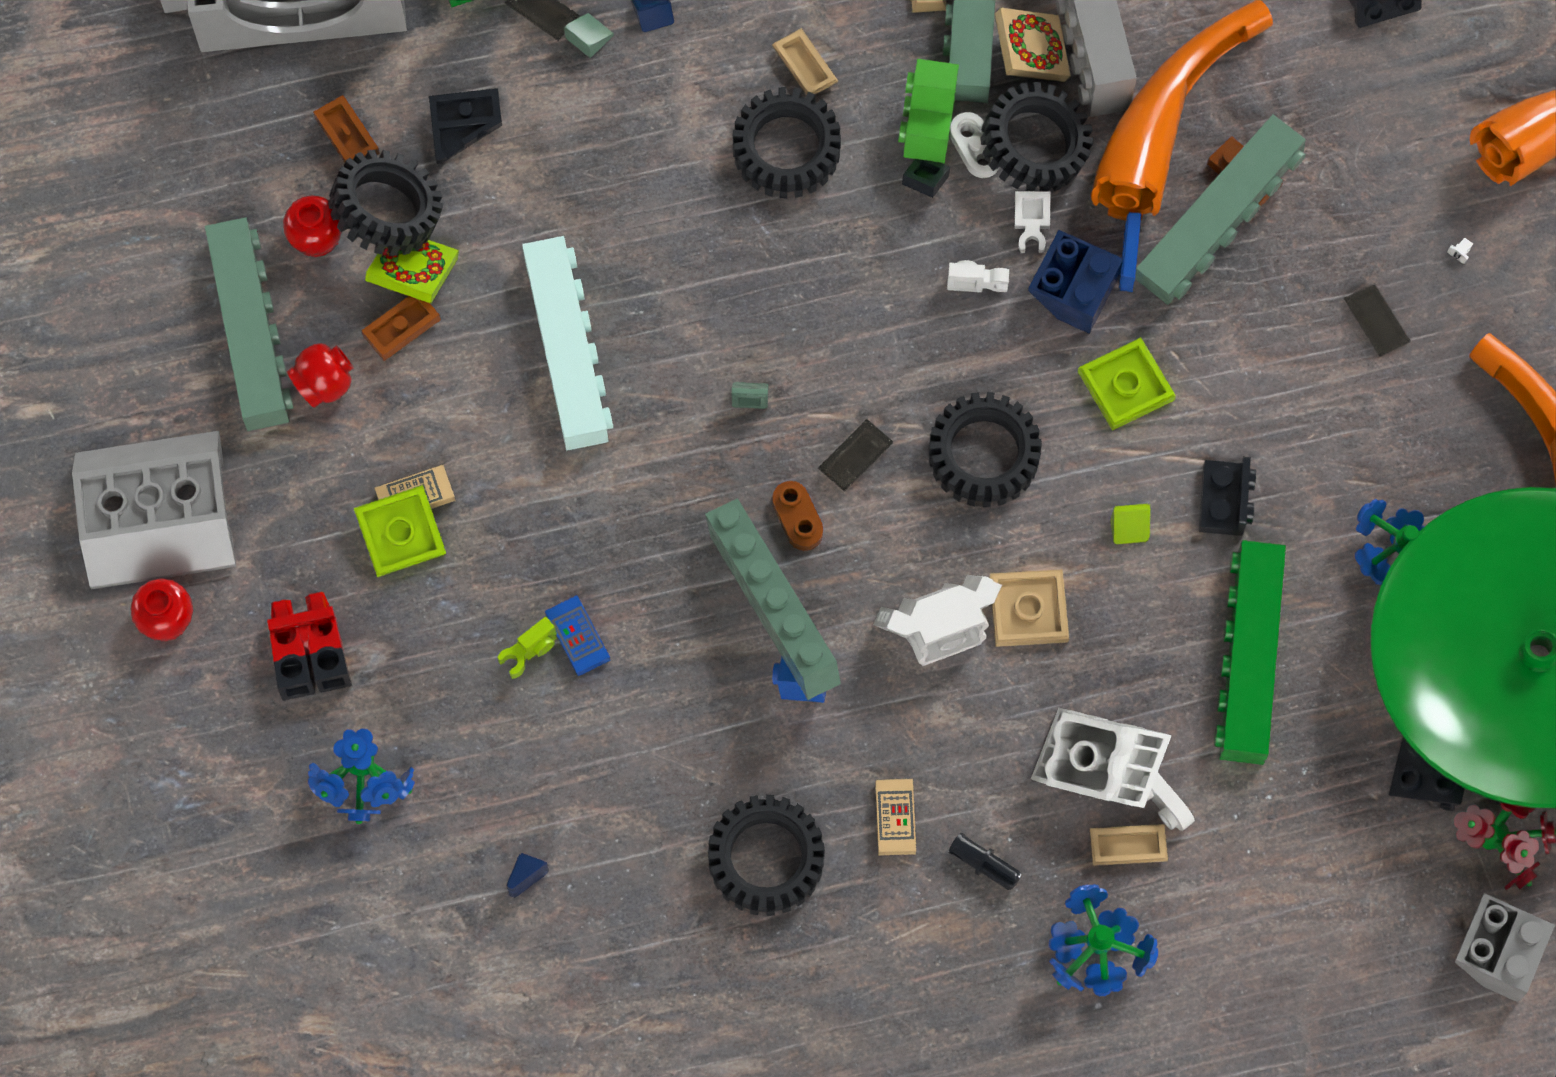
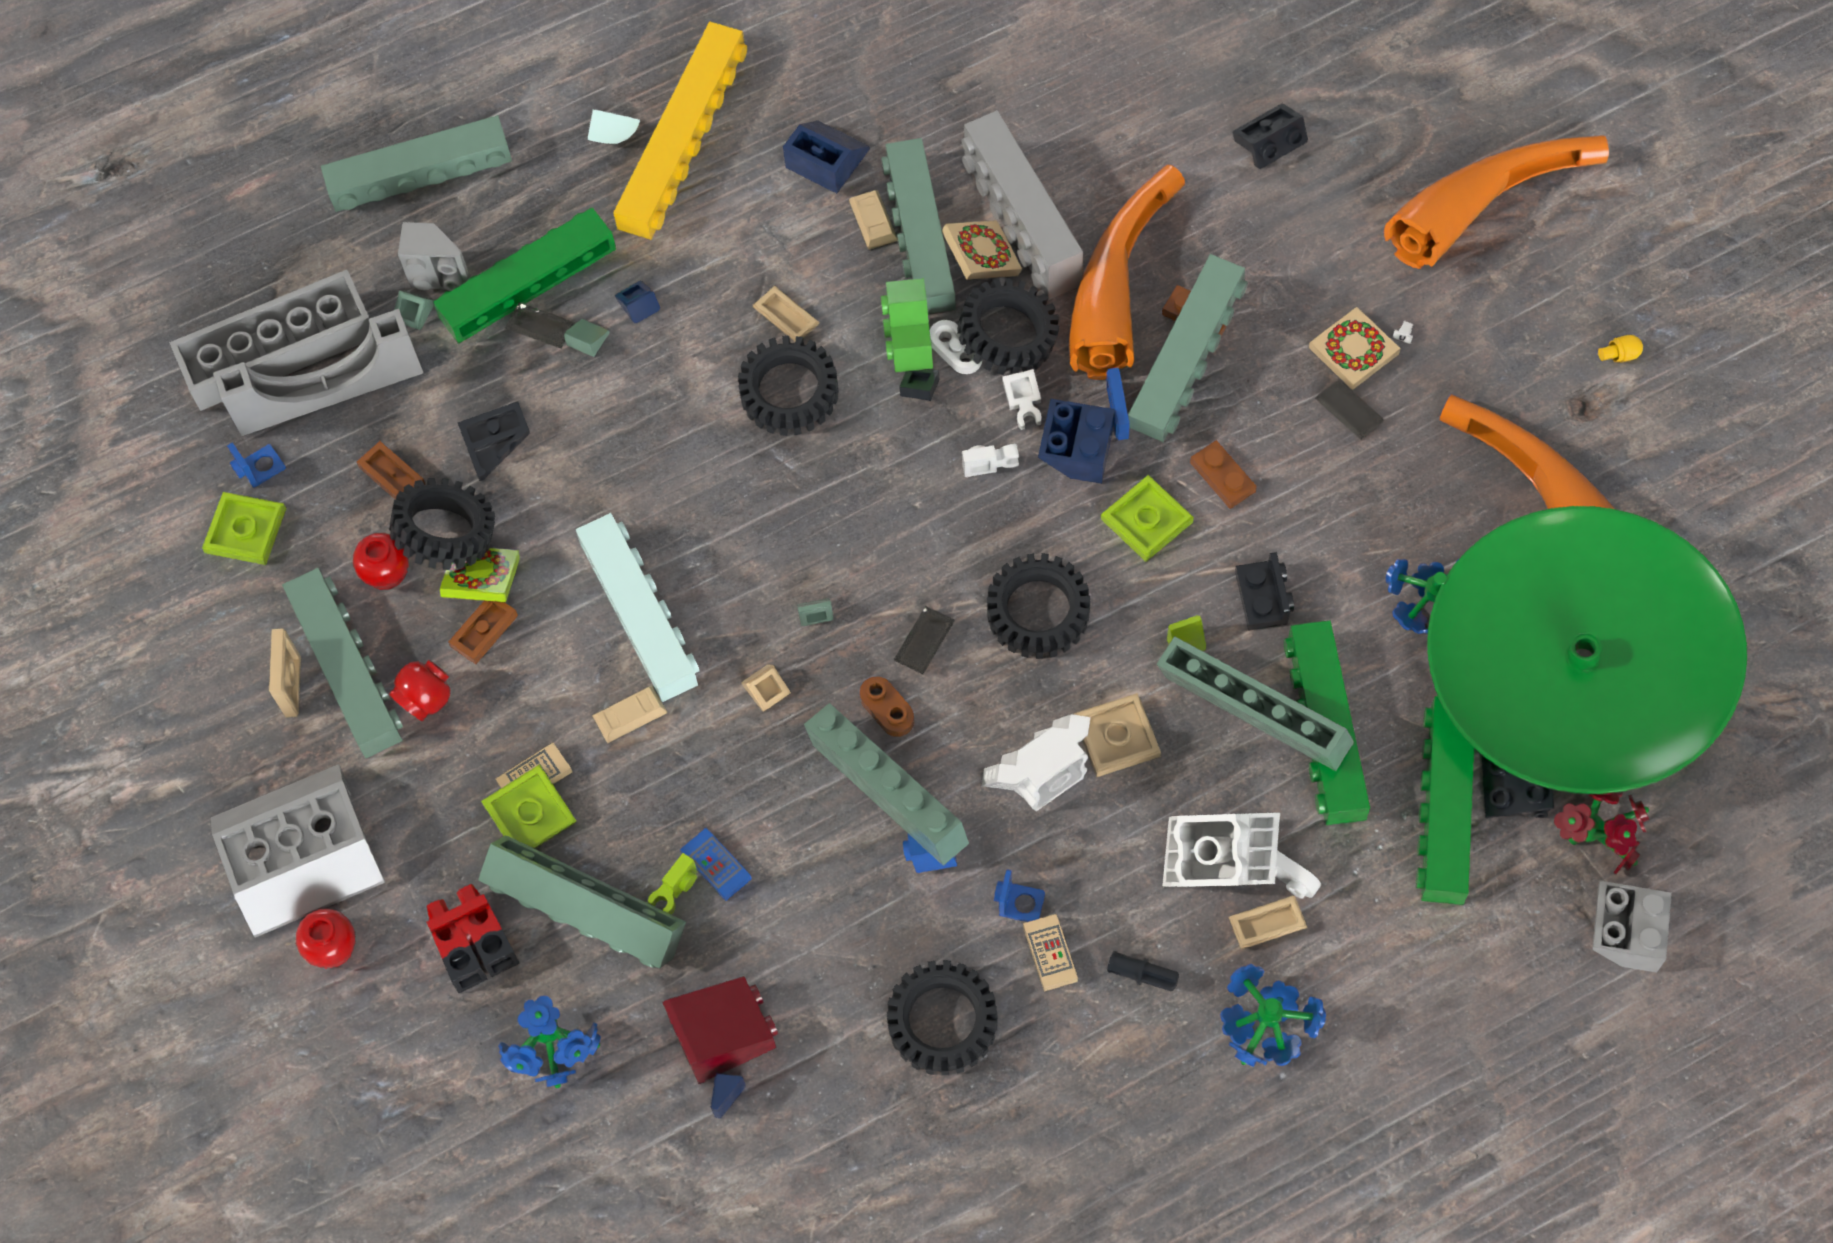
camera: 10 degrees left, 5 degrees down
(180, 153) = (244, 528): none -> lime tile
(185, 321) = (285, 673): none -> tan tile
(198, 87) = (247, 468): none -> blue bracket
(430, 639) = (582, 902): none -> sand green brick
(529, 454) = (629, 714): none -> tan tile
(538, 805) = (721, 1027): none -> dark red slope
(678, 462) = (766, 687): none -> tan slope
(868, 744) = (1007, 893): none -> blue bracket
(1179, 613) = (1255, 703): none -> sand green brick
(1220, 357) = (1223, 474): none -> dark orange plate
(1347, 779) = (1446, 810): none -> green brick
(1402, 254) = (1354, 348): none -> tile

